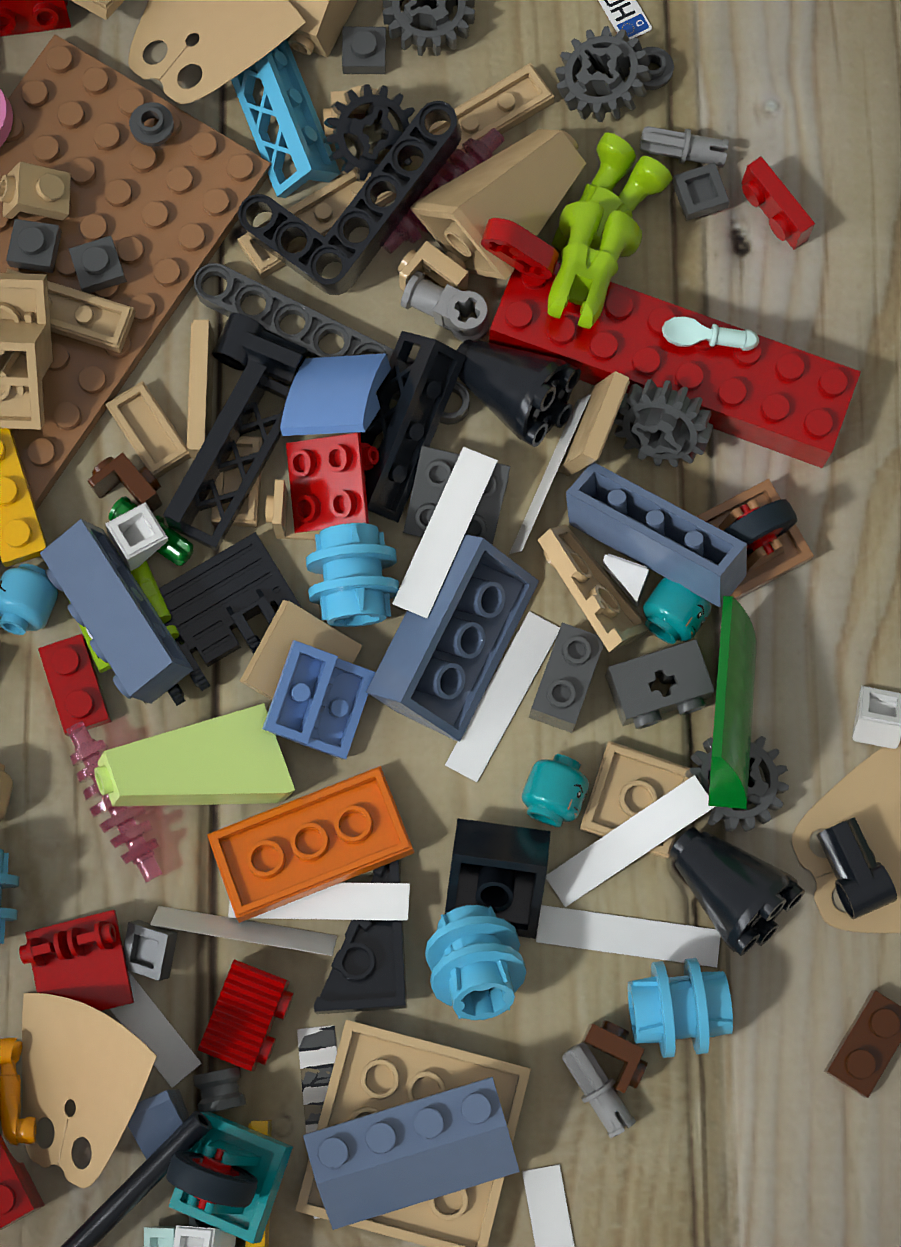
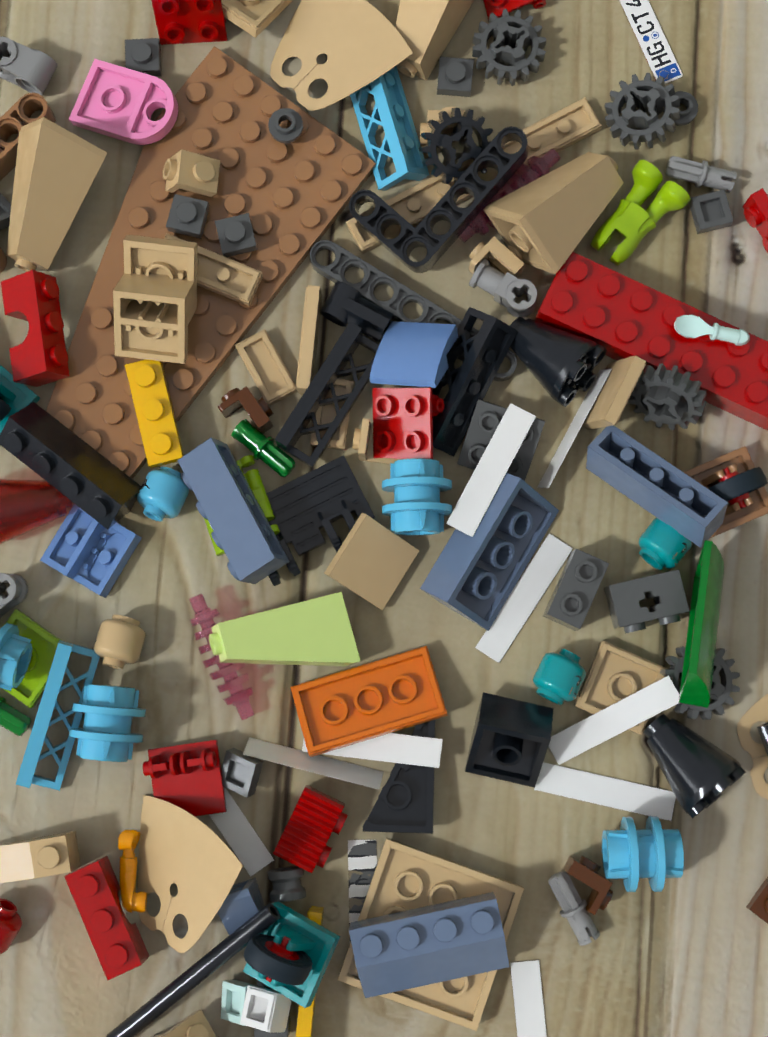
camera: 10 degrees right, 5 degrees up
(74, 683) = (197, 561): red plate -> none
(136, 535) = (252, 452): white slope -> none
(318, 700) = (383, 592): medium blue slope -> none
(475, 962) = (488, 806): medium azure piece -> none
(519, 248) = (568, 251): red beam -> none
(587, 271) = (618, 272): lime piece -> none
(596, 594) = (604, 527): tan wing -> none
(628, 575) = (629, 514): white slope -> none

